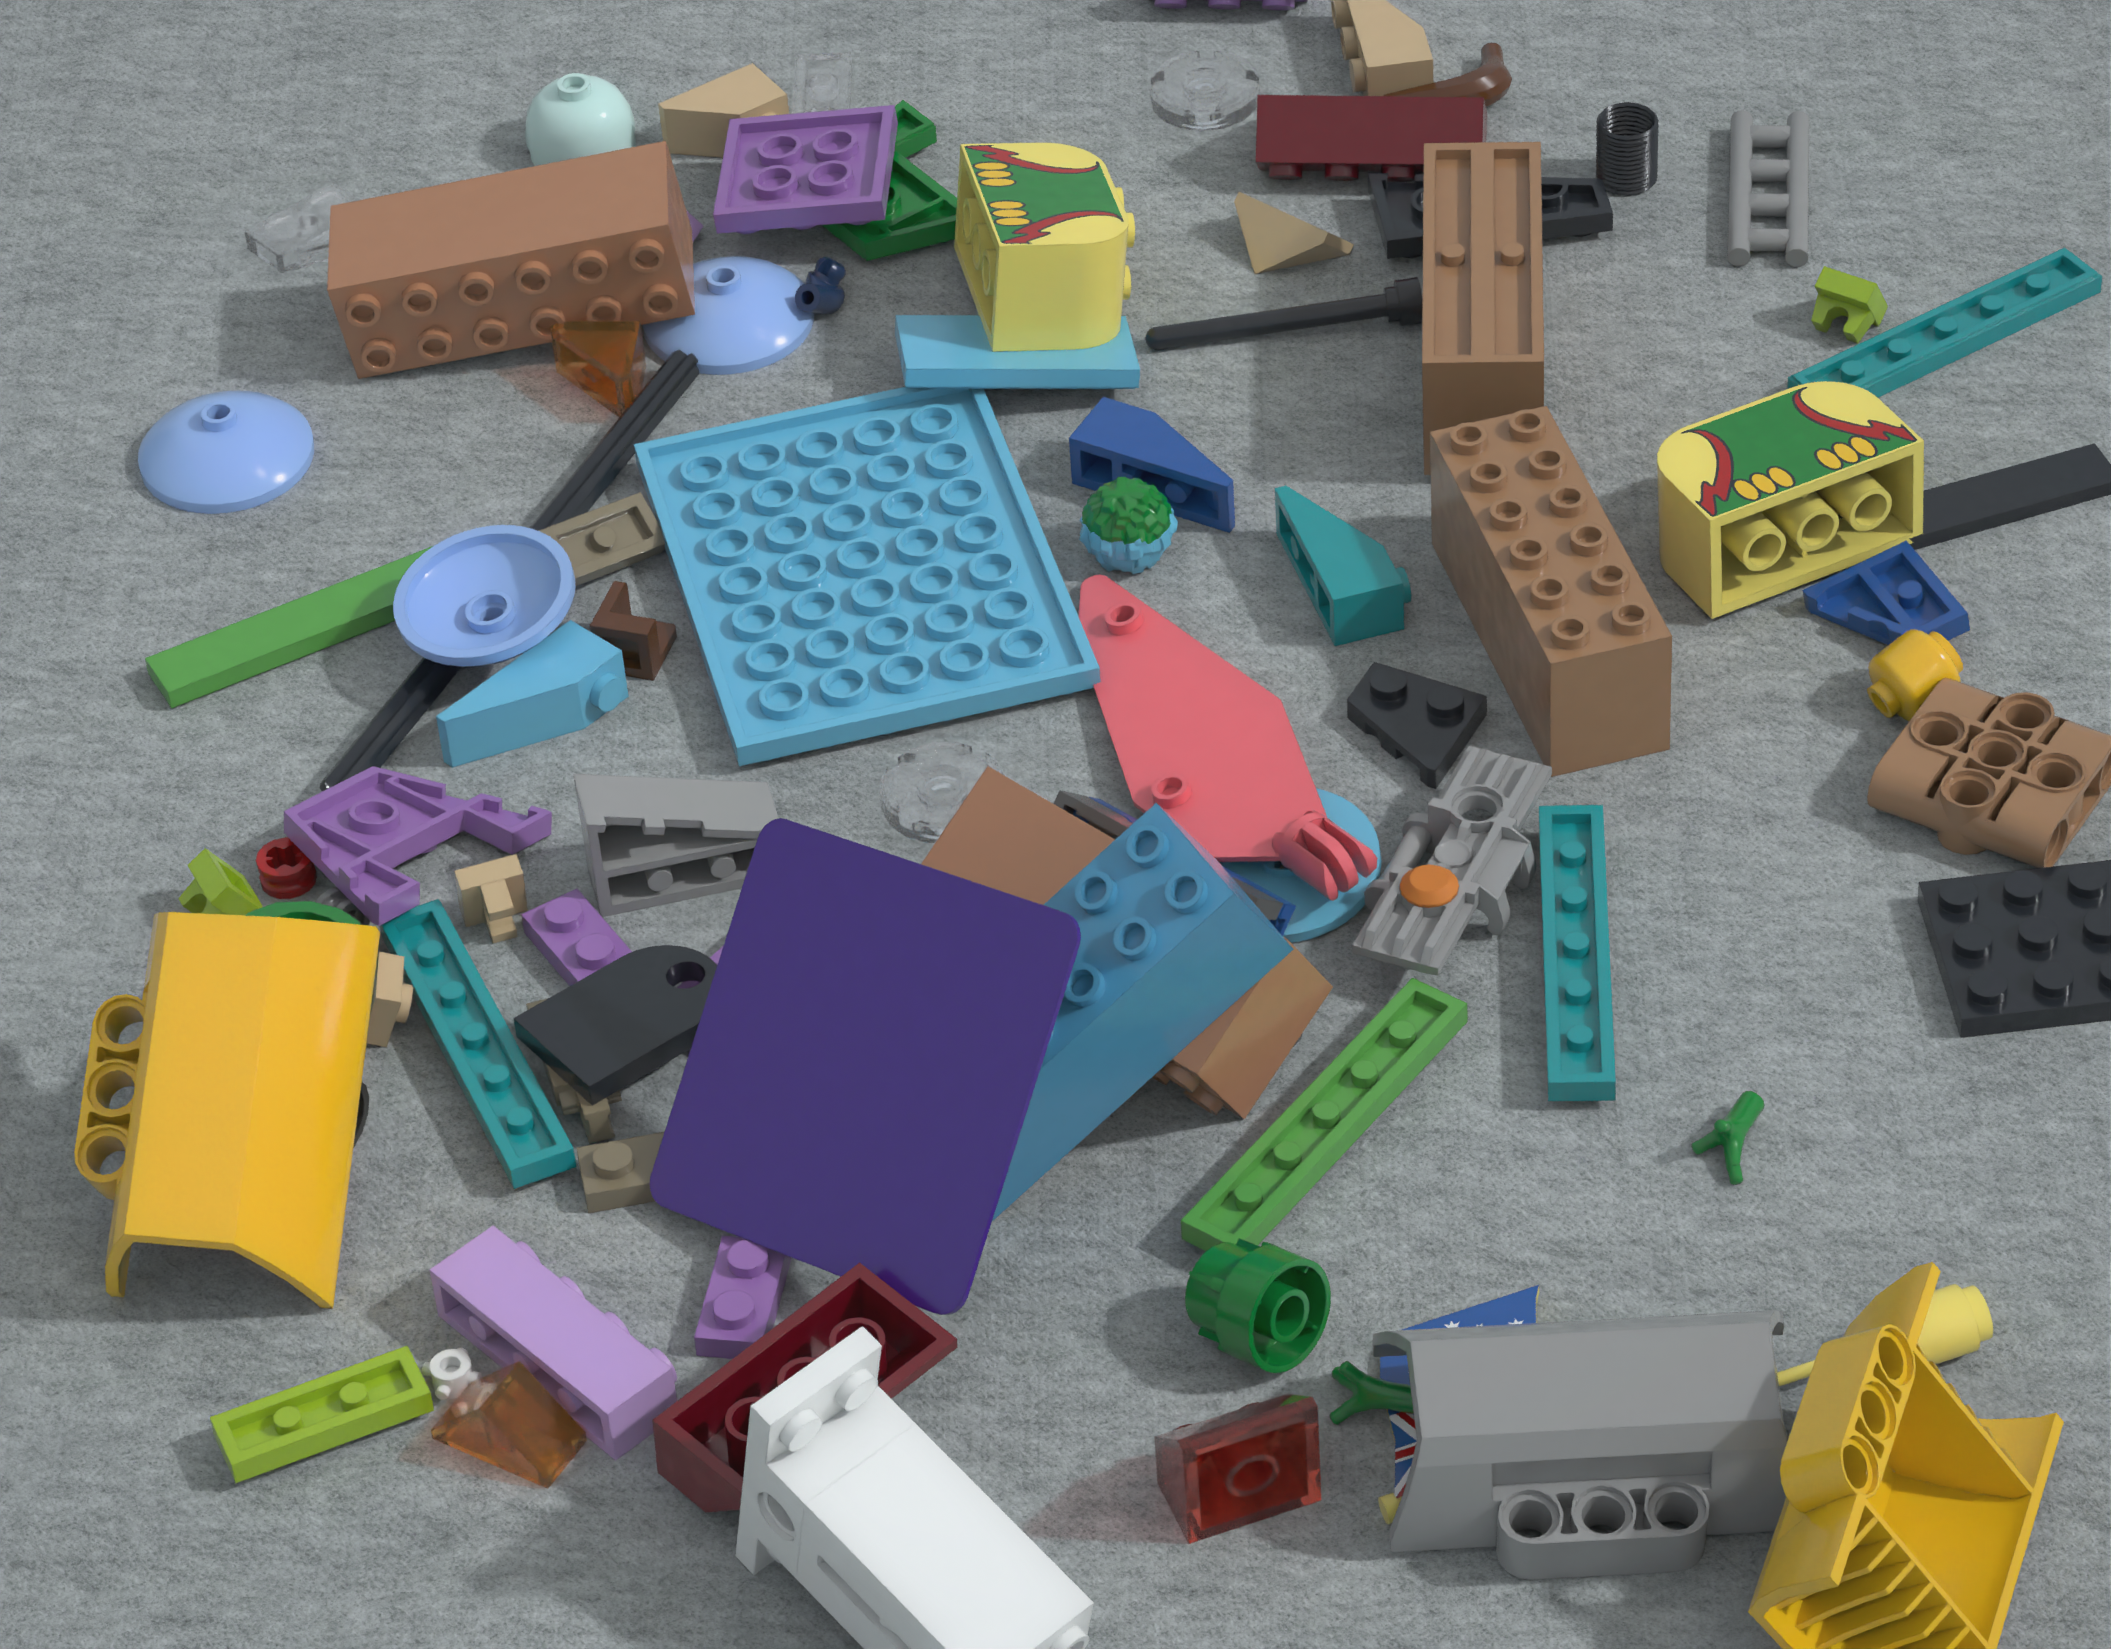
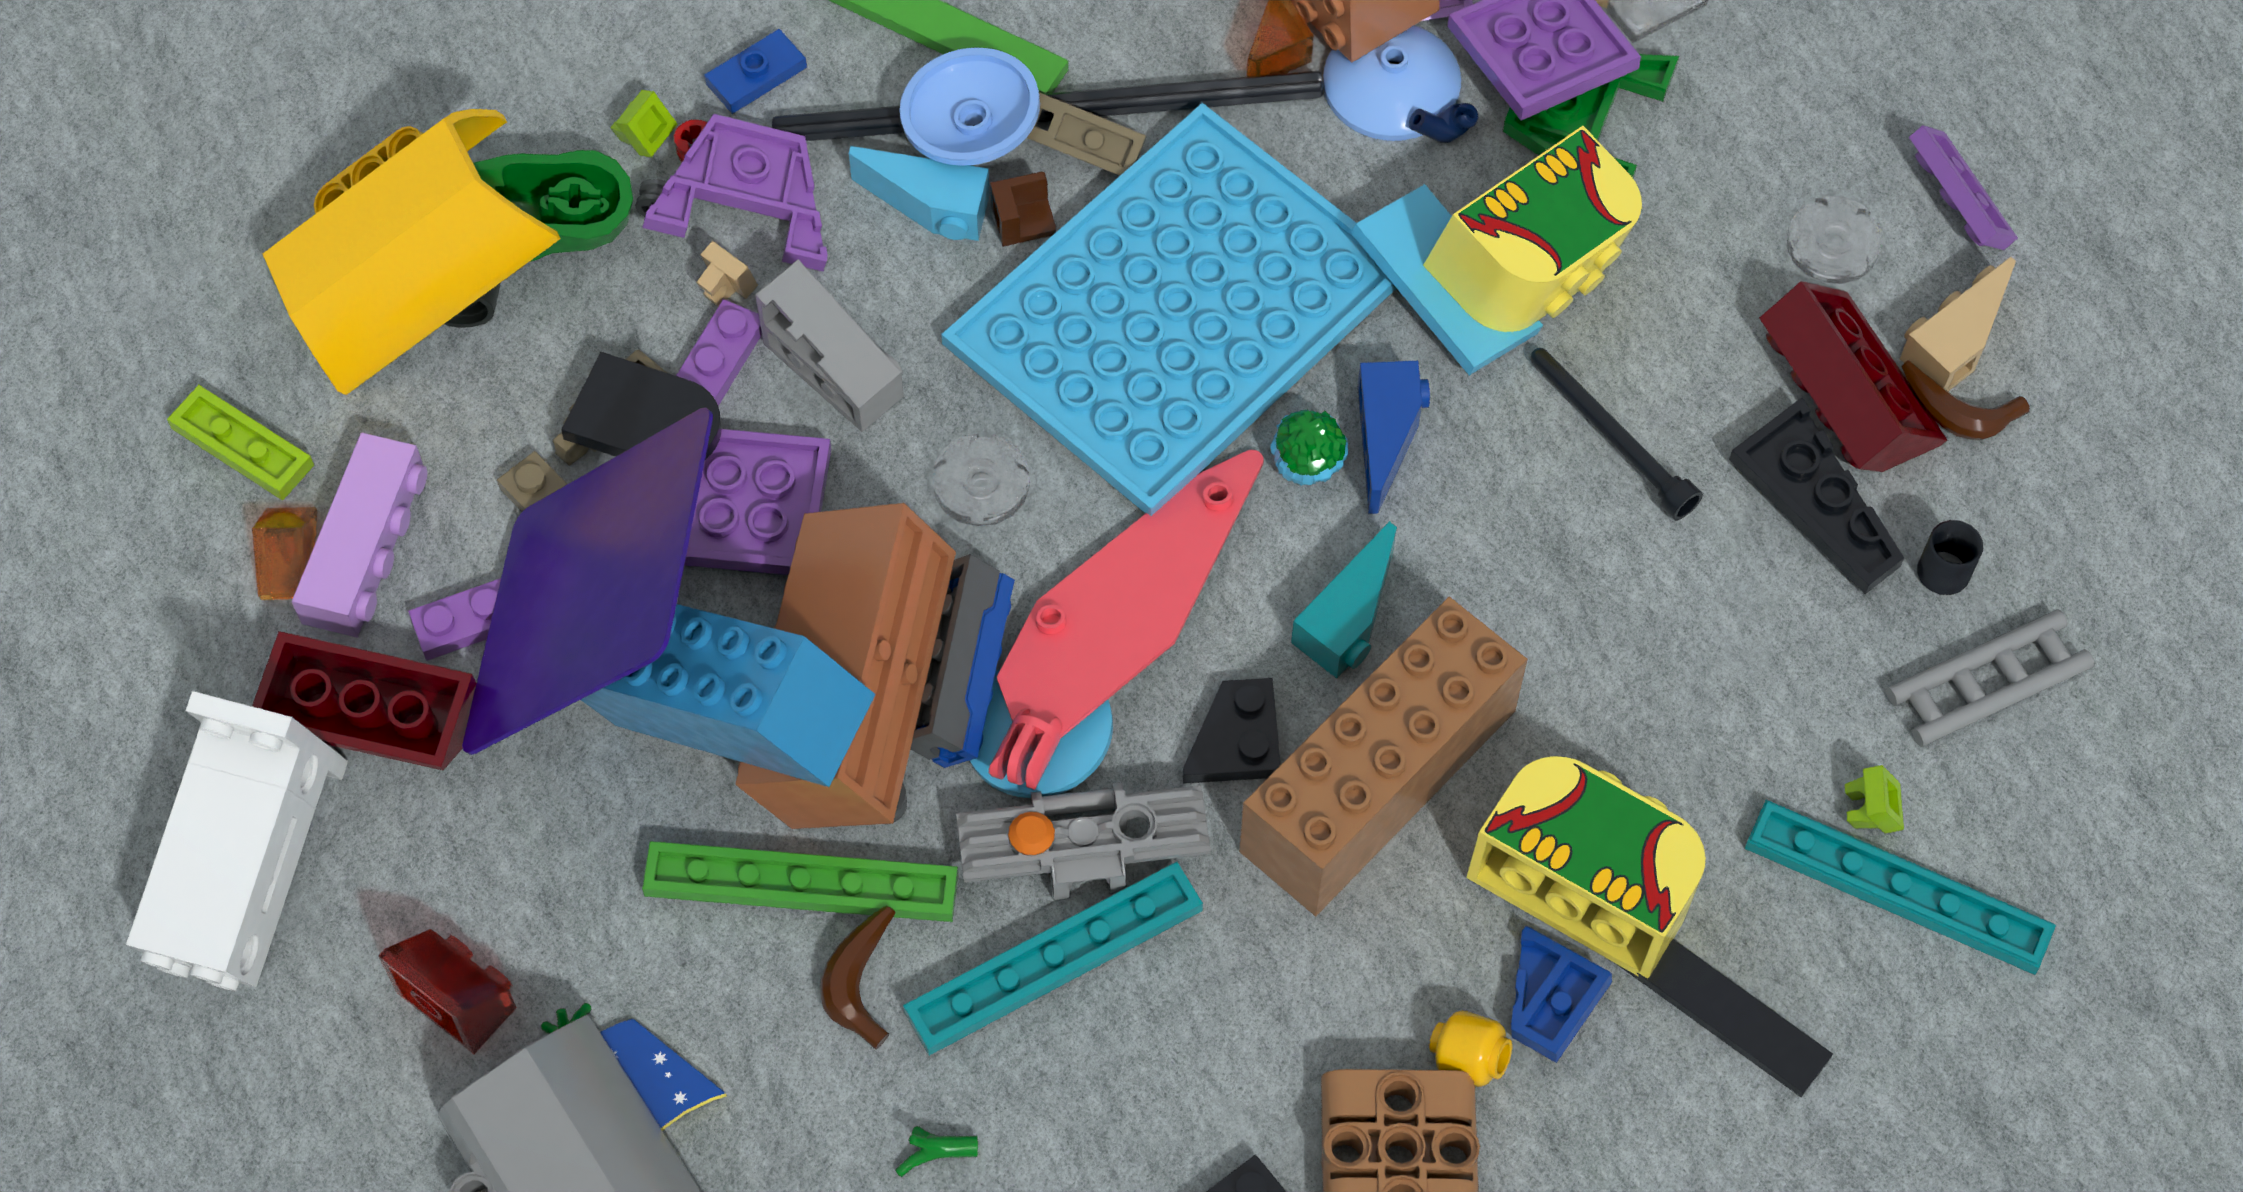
camera: 55 degrees right, 20 degrees up
(237, 785) = (755, 71): none -> blue plate
(389, 1000) = (599, 268): tan plate -> none
(450, 1372) = (317, 492): white piece -> none
(478, 1045) = (604, 328): teal plate -> none
(1259, 1303) = (589, 929): green piece -> none
(1282, 240) = (1708, 376): tan slope -> none
(1474, 1127) = (843, 974): none -> reddish brown piece
(1481, 283) = (1662, 554): medium nougat brick -> none

